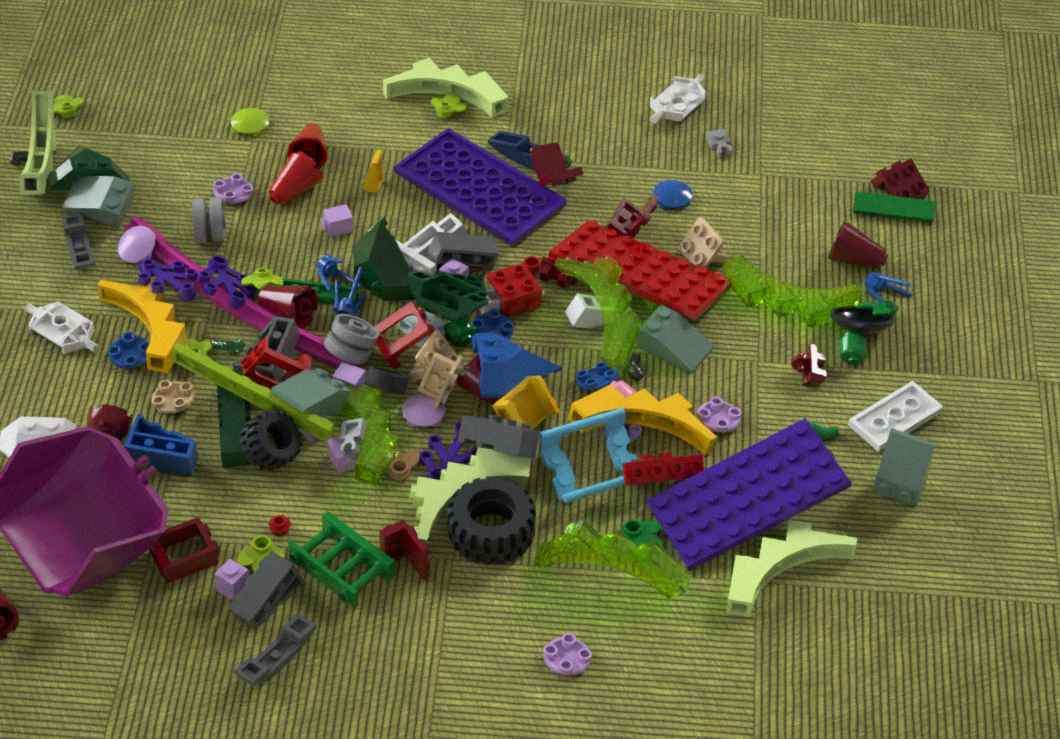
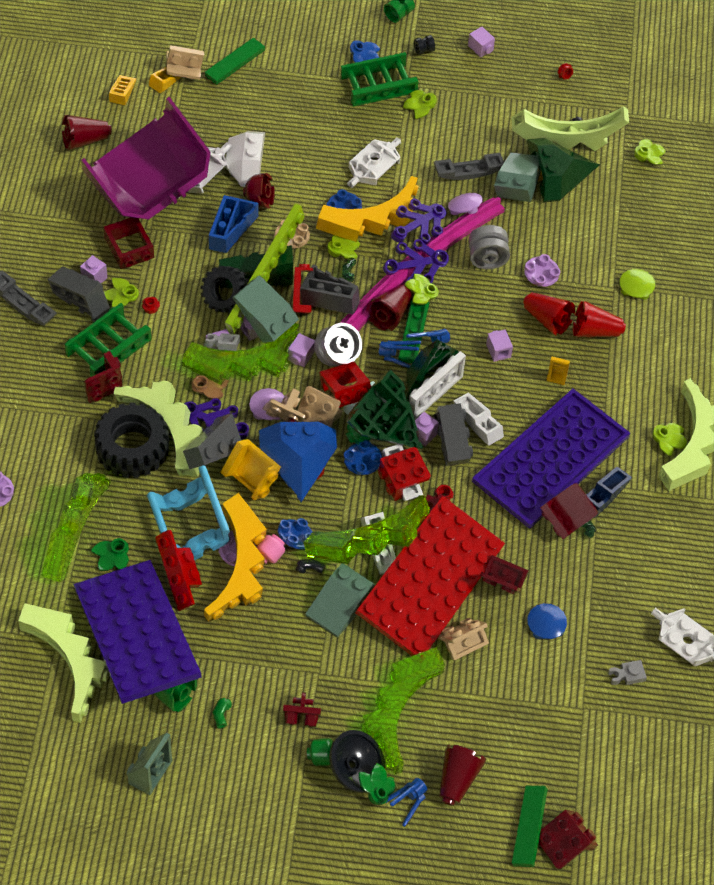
camera: 90 degrees right, 10 degrees up
(387, 380) = (303, 368): black tyre -> none
(719, 415) = (245, 628): lavender dish -> none
(900, 410) = (234, 779): white plate -> none

